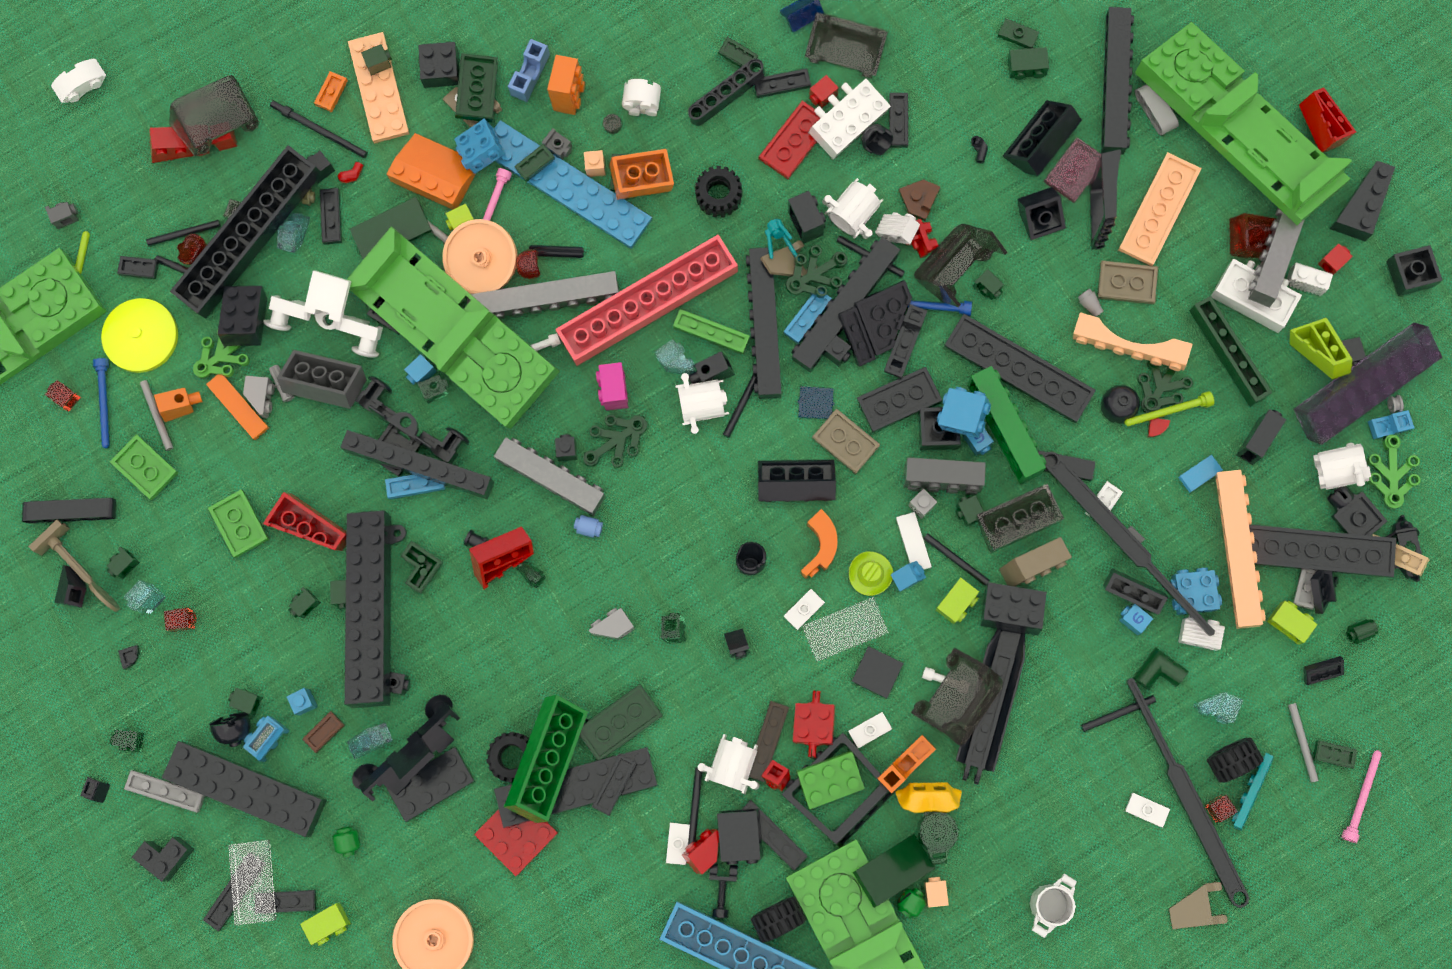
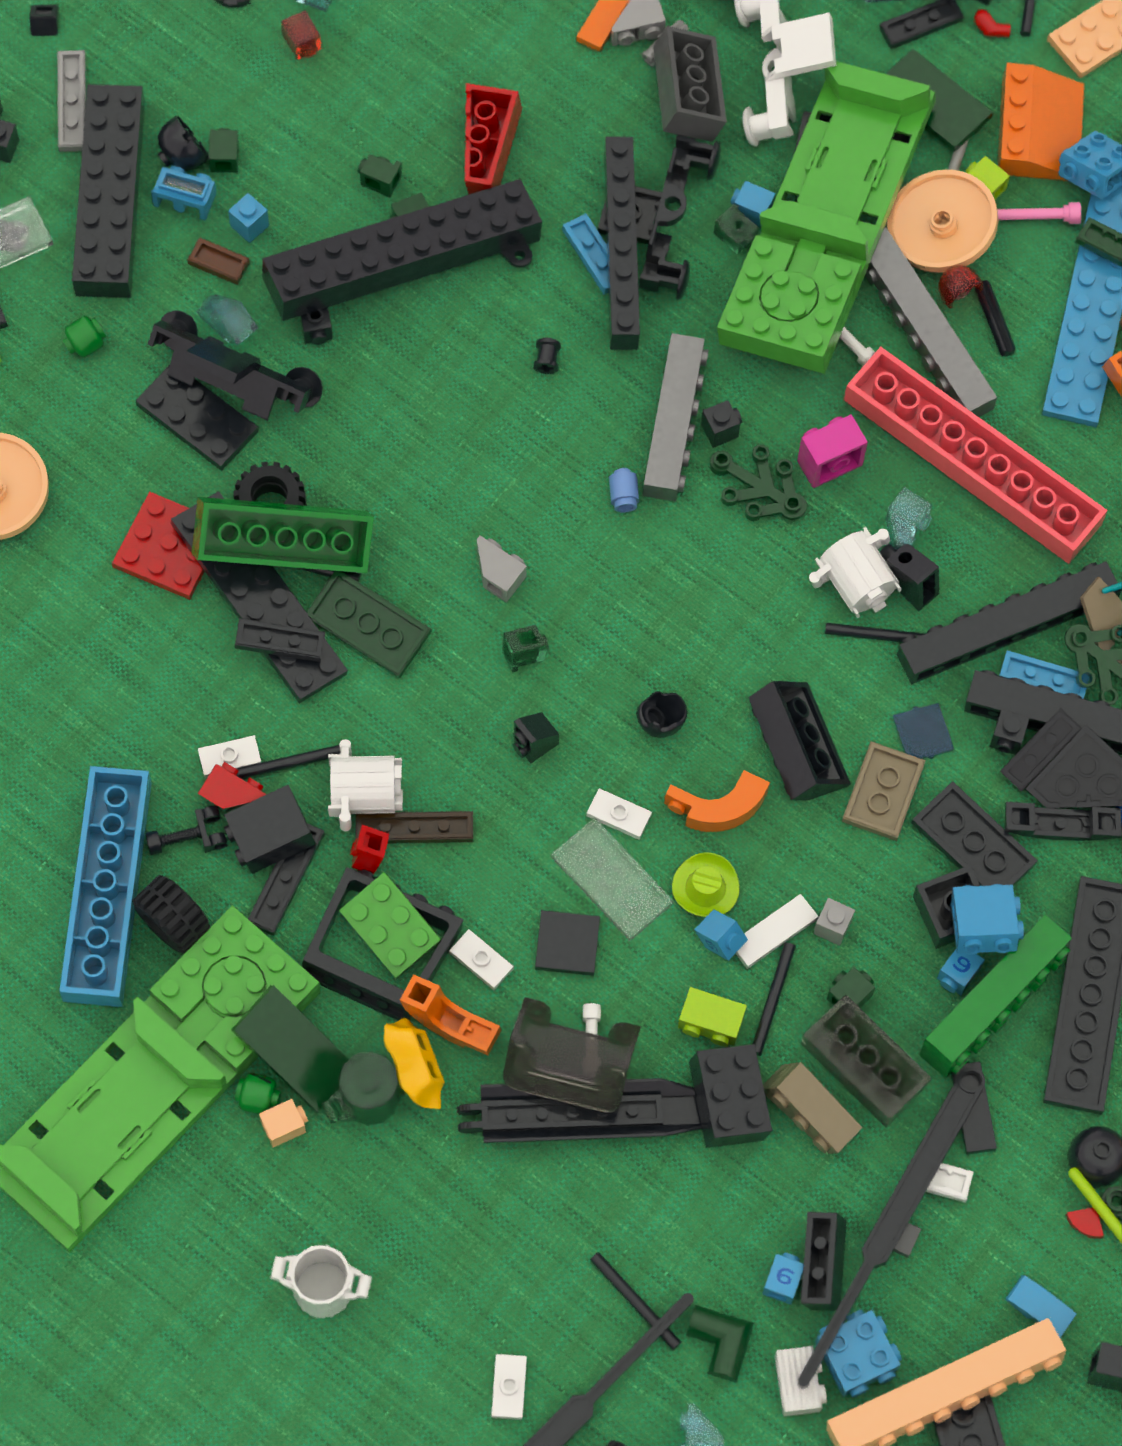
camera: 60 degrees right, 10 degrees down
(127, 740) = (121, 32): clear green brick -> none
(238, 523) = (456, 59): bright green plate -> none
(425, 566) = (484, 305): dark green brick -> none
(499, 554) = (540, 388): red wedge -> none
(531, 574) = (528, 443): clear green cone -> none
(711, 331) = (966, 556): bright green plate -> none
(814, 724) = (461, 878): red plate -> none
(944, 475) = (886, 934): brick -> none

